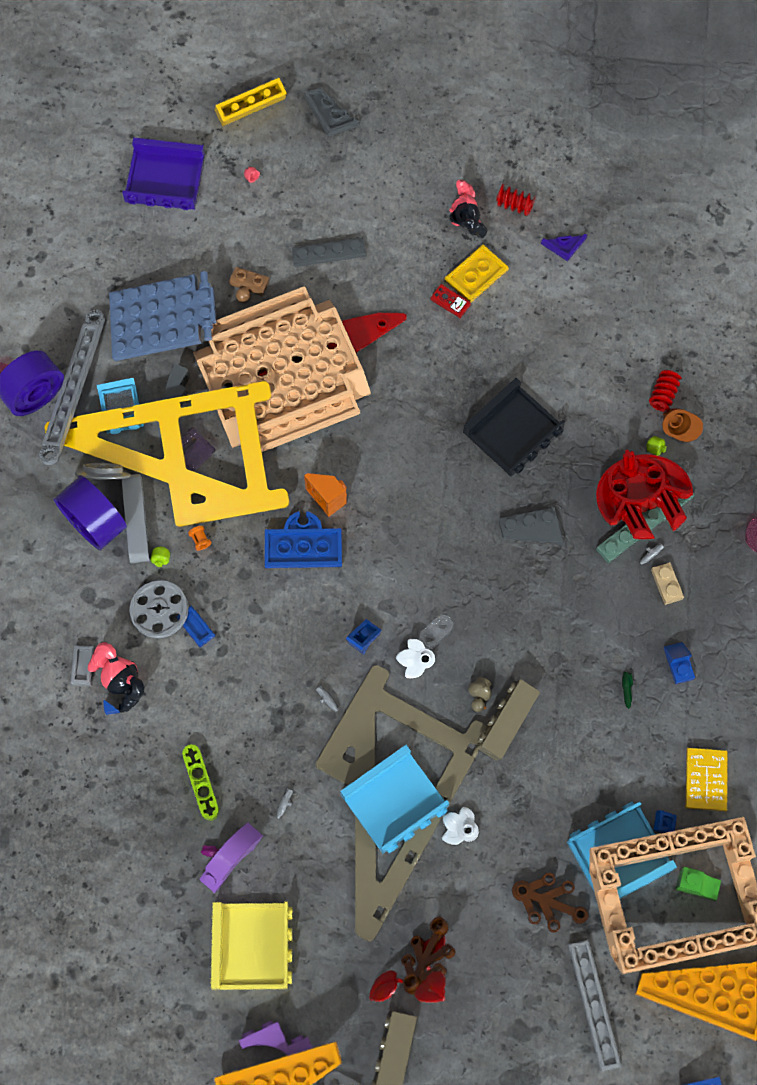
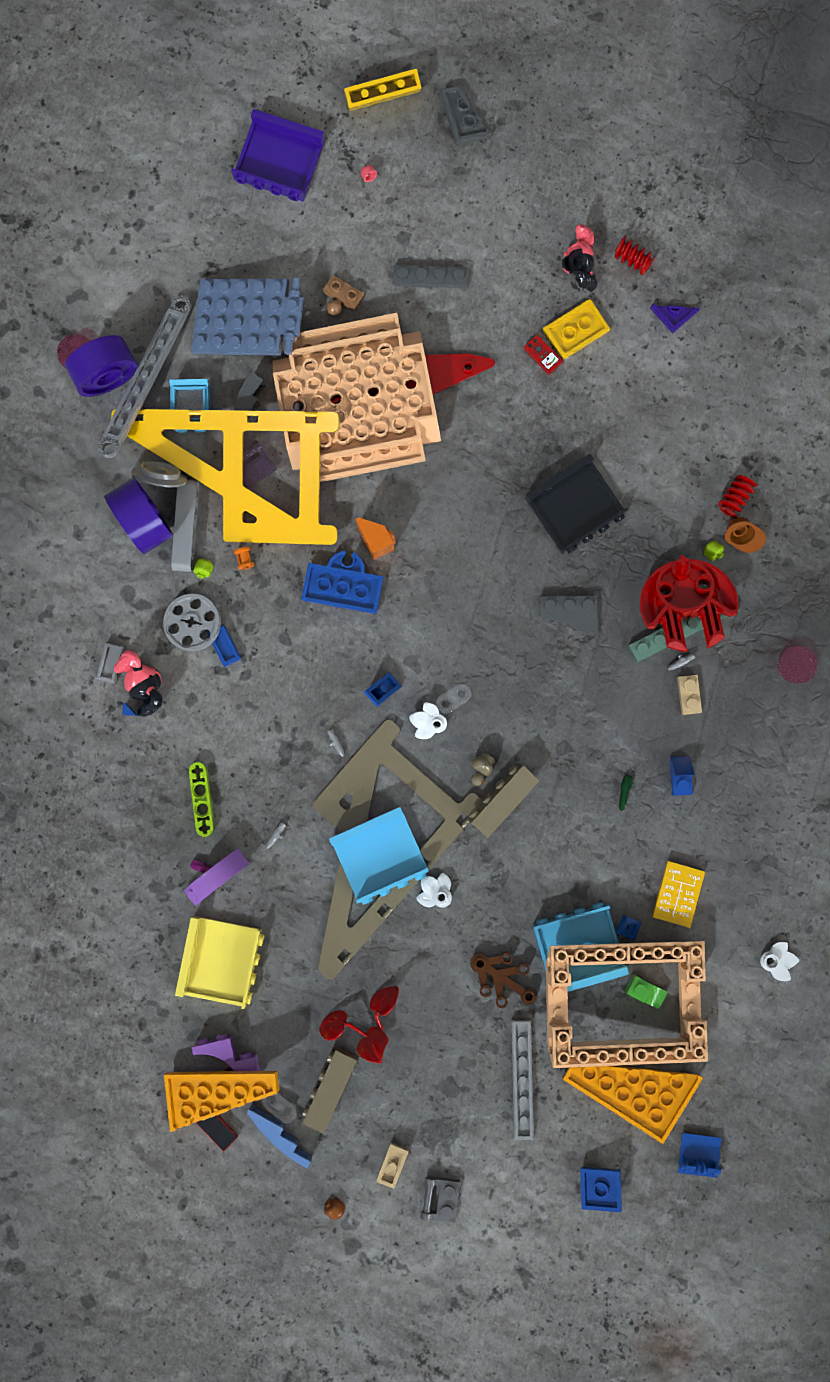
camera: 15 degrees right, 15 degrees up
(426, 958) = (375, 1009): reddish brown plant -> none

